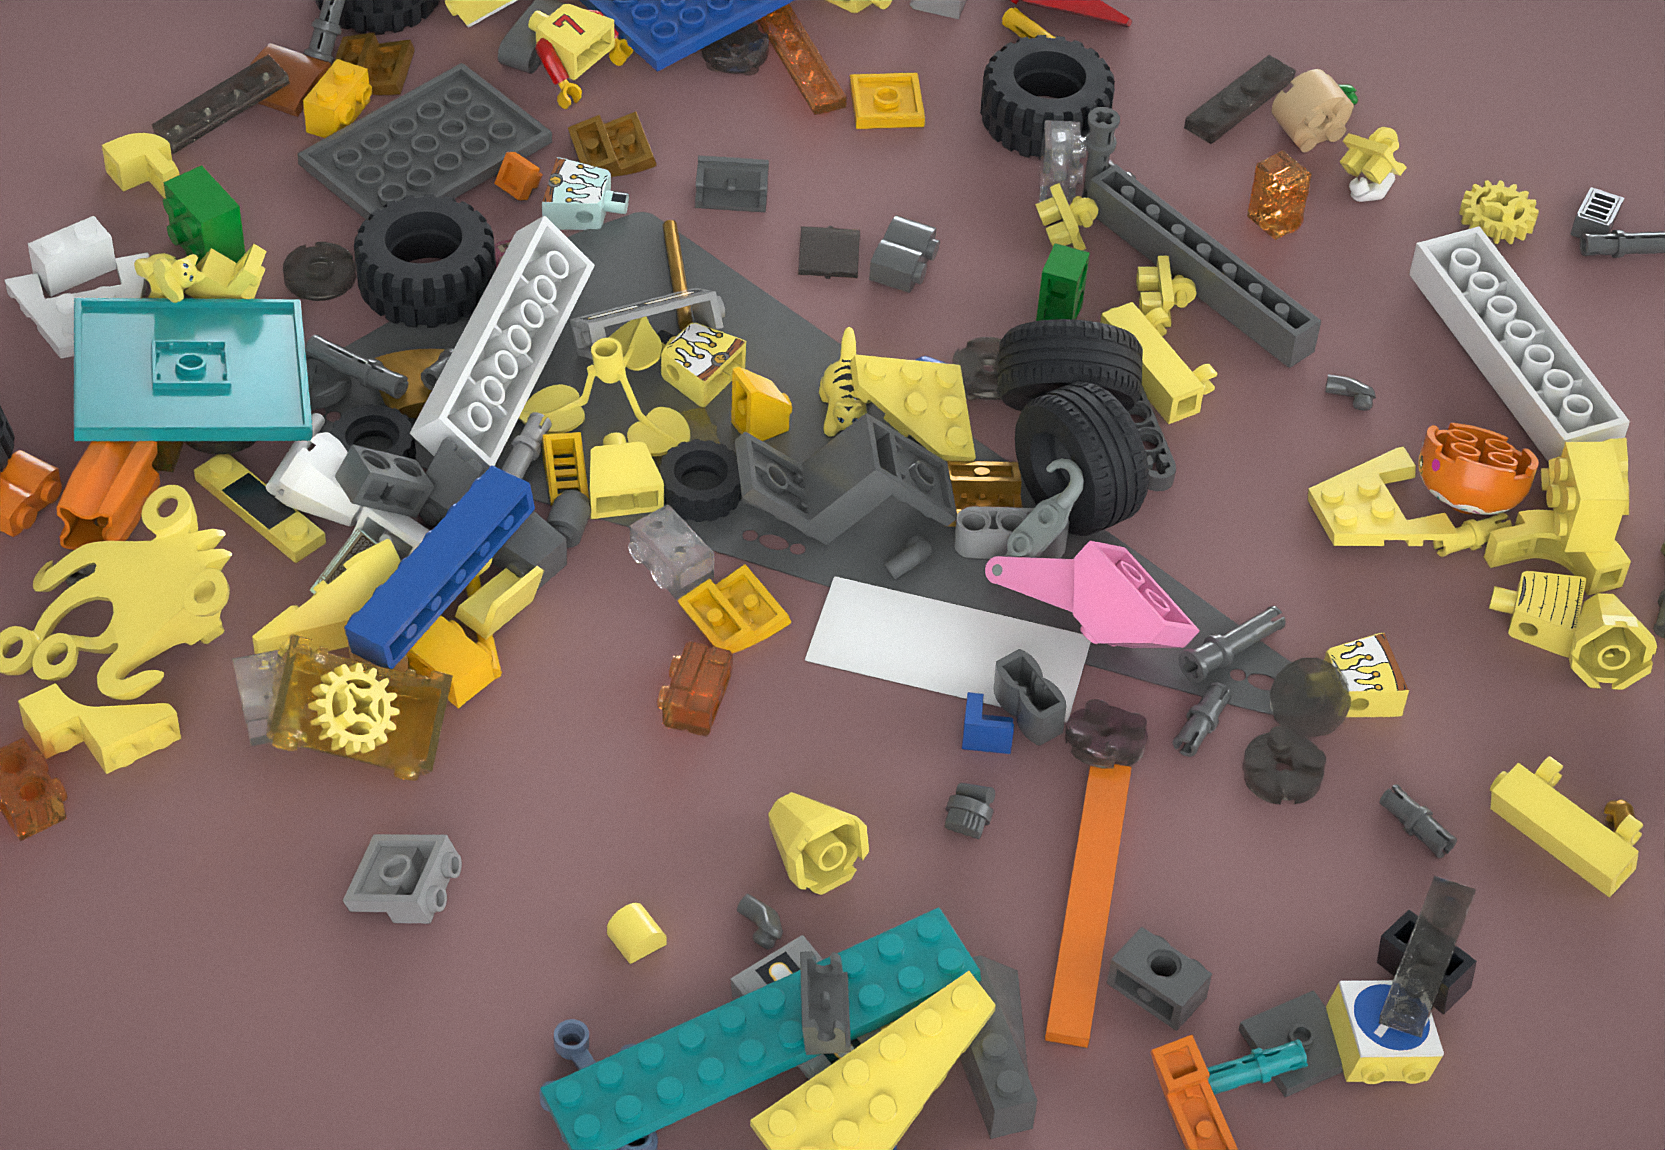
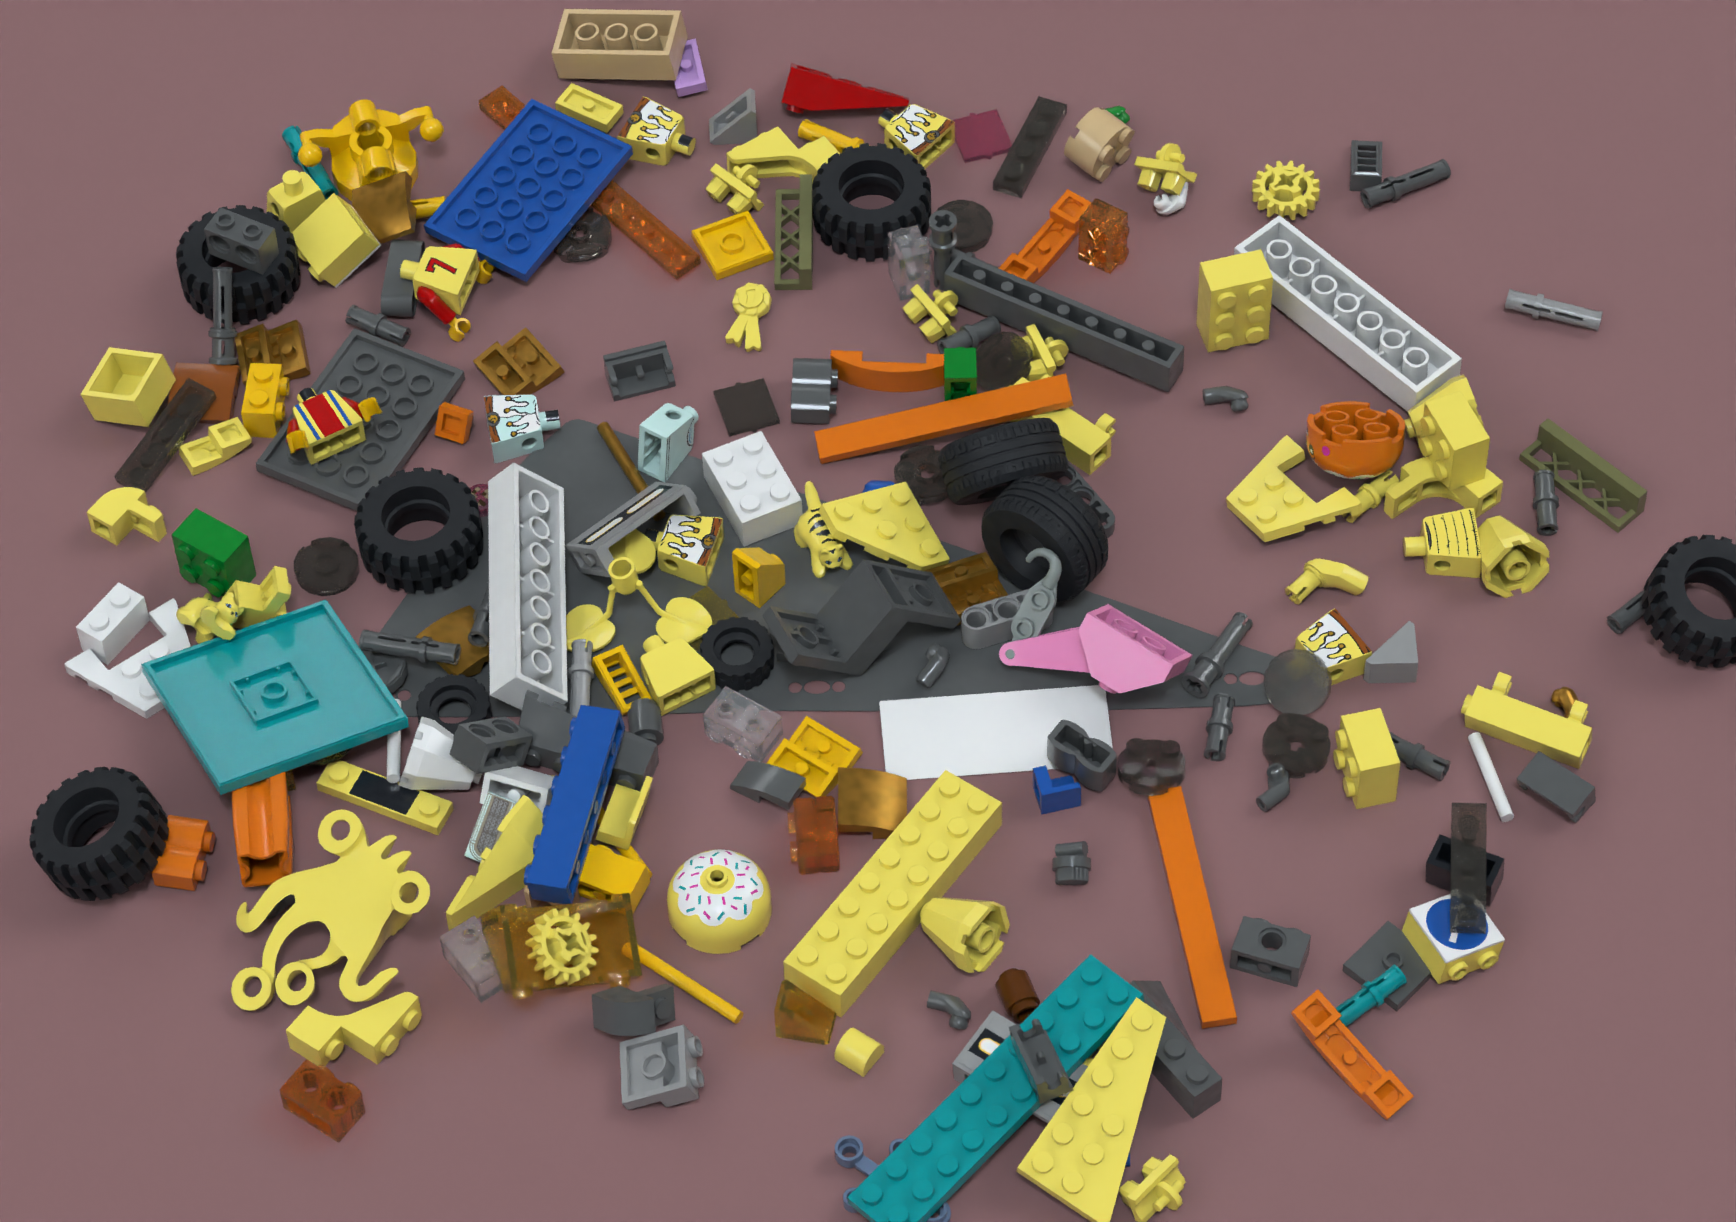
camera: 15 degrees left, 5 degrees up
(207, 47) = (128, 387): none -> light yellow piece
(279, 128) = (221, 444): none -> light yellow slope
(382, 135) = (328, 423): none -> torso
(404, 807) = (631, 1012): none -> dark grey brick
(481, 798) = (689, 986): none -> yellow bar
(488, 68) = (378, 325): none -> dark grey pin
(557, 722) = (719, 901): none -> cylinder
(588, 872) = (802, 1016): none -> clear yellow slope
(672, 619) = (770, 782): none -> dark grey slope
(725, 251) = (665, 440): none -> light aqua torso
(736, 779) = (887, 894): none -> light yellow brick
(775, 675) = (870, 801): none -> pearl gold slope
(793, 324) = (752, 488): none -> white brick
(843, 925) = (1017, 994): none -> reddish brown brick
(876, 157) = (750, 304): none -> light yellow piece
(917, 46) = (744, 196): none -> light yellow hips
(959, 116) = (804, 233): none -> olive fence
(964, 31) = (778, 157): none -> light yellow arch
(987, 261) = (888, 375): none -> orange slope
(999, 315) = (943, 418): none -> orange tile
(1105, 250) = (971, 335): none -> dark grey pin
(1118, 282) = (1002, 360): none -> clear smoke tile
(1129, 52) = (918, 133): none -> torso
(1140, 150) = (973, 224): none -> clear smoke tile
(1192, 75) = (981, 136): none -> clear pink piece
(1221, 189) = (1050, 240): none -> orange slope
(1243, 805) = (1277, 787): none -> dark grey arm
(1357, 802) = (1367, 758): none -> light yellow piece
(1391, 599) = (1326, 574): none -> light yellow arm
(1395, 291) = (1234, 300): none -> light yellow brick
(1432, 709) = (1395, 660): none -> light grey slope
(1499, 872) = (1490, 777): none -> white bar
(1575, 905) = (1558, 786): none -> dark grey hinge

